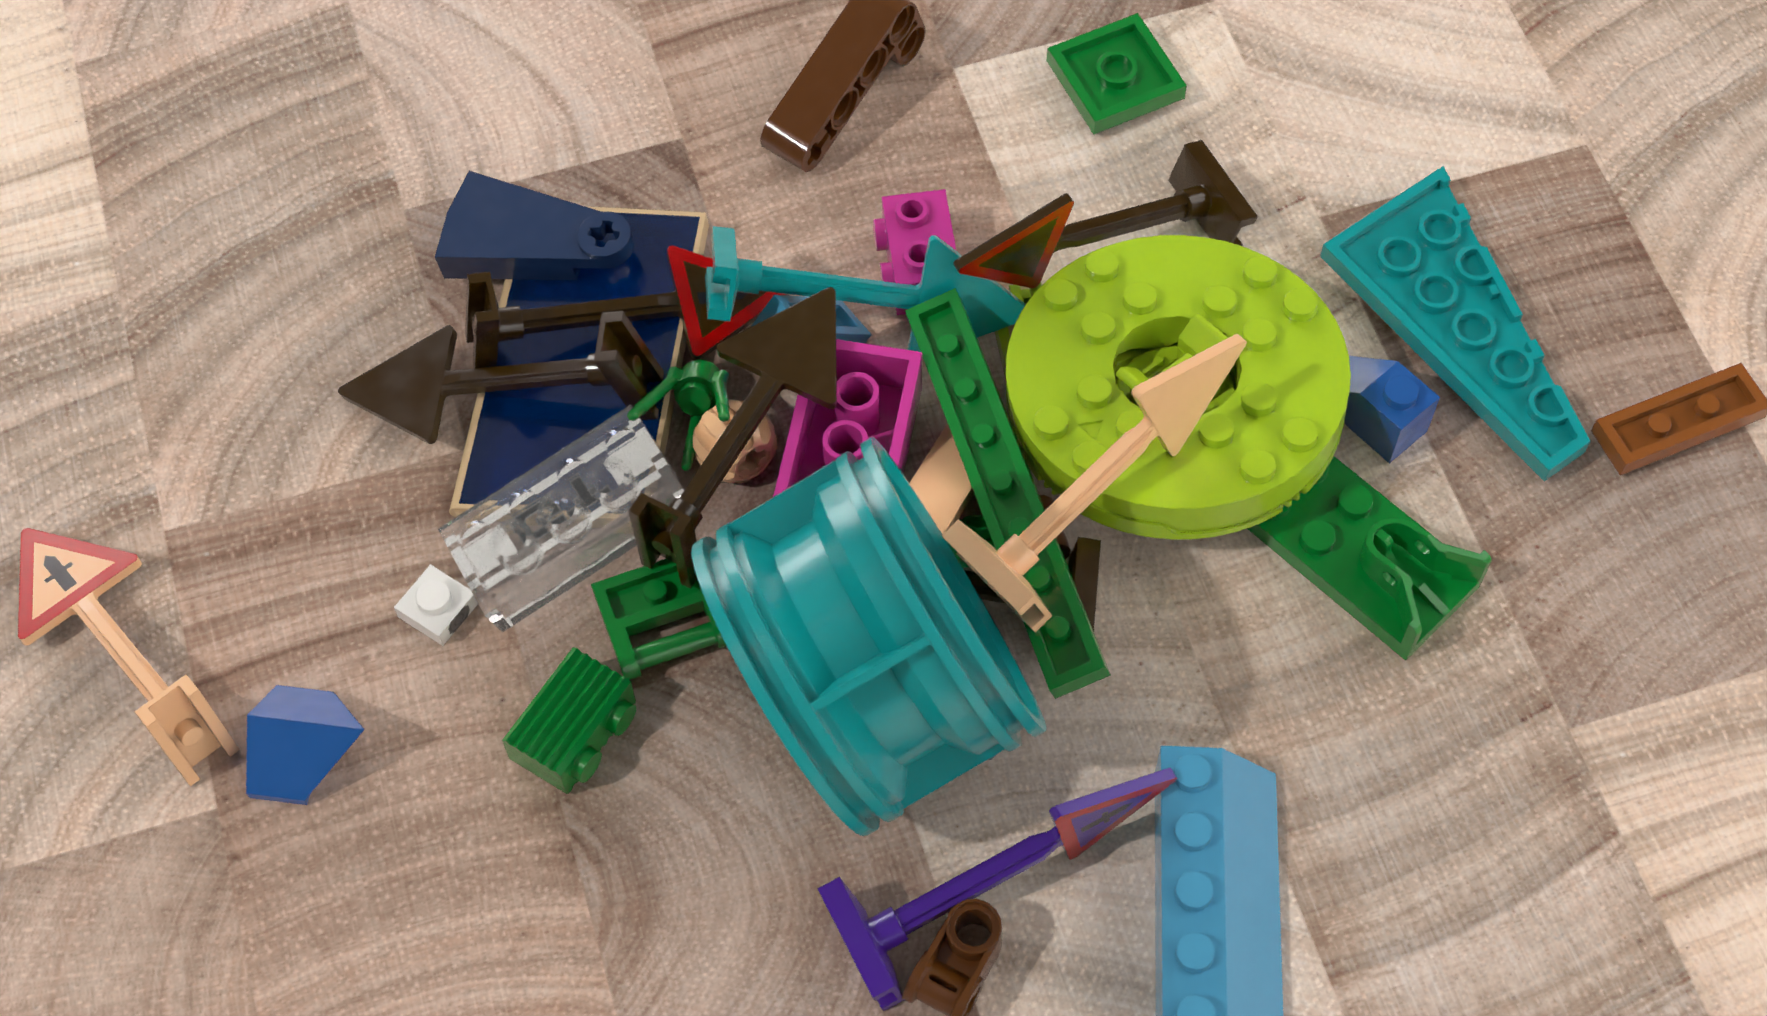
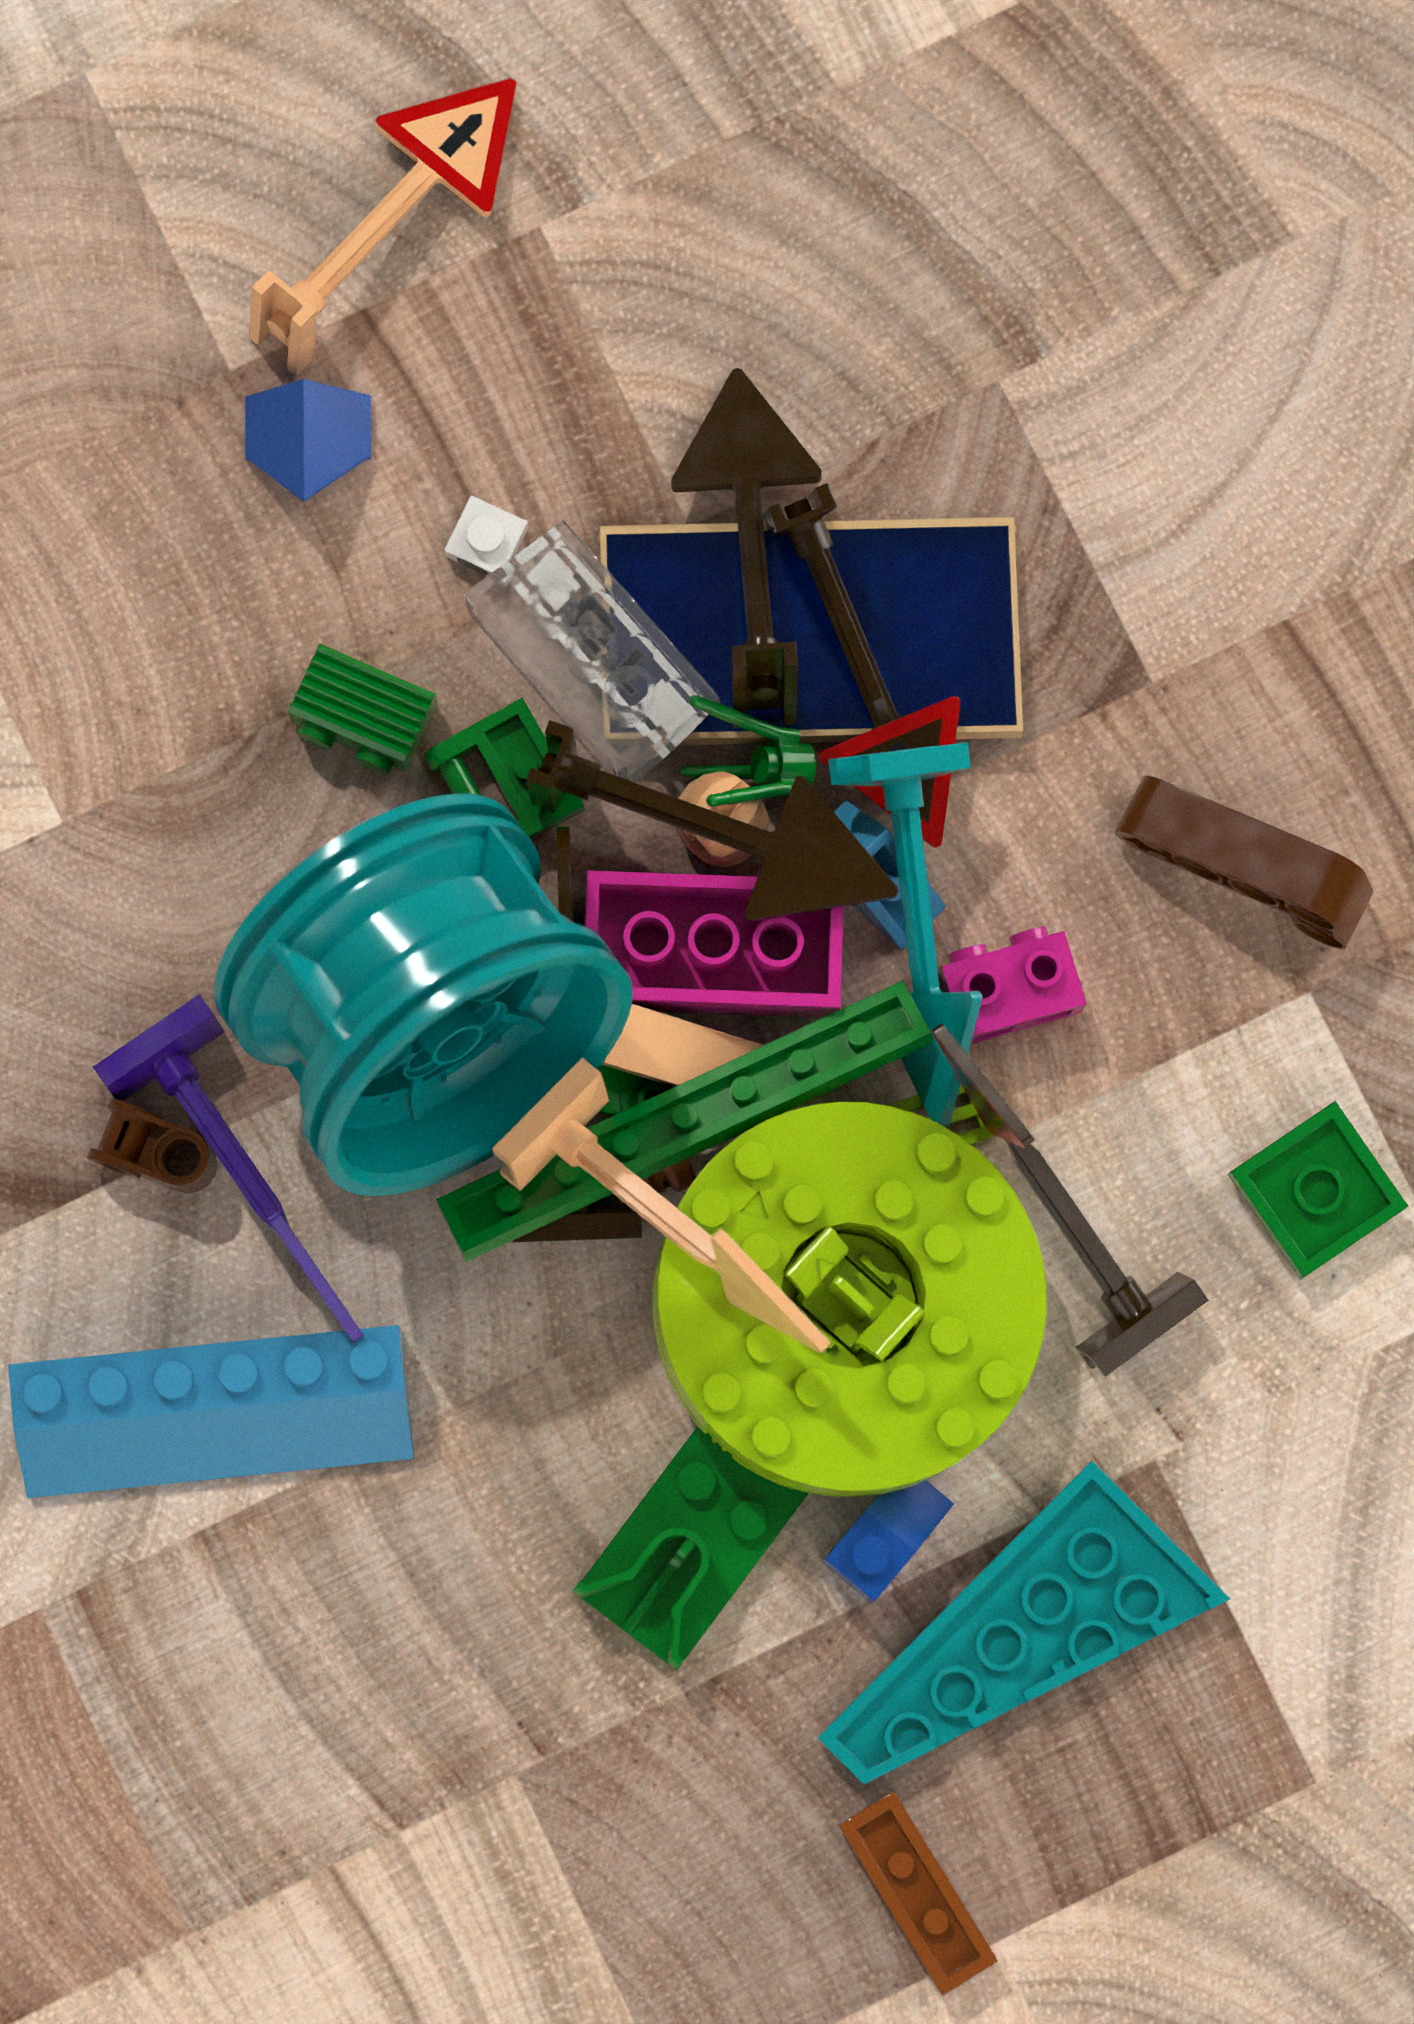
camera: 75 degrees right, 20 degrees up
(526, 234) = (956, 521): dark blue piece -> none

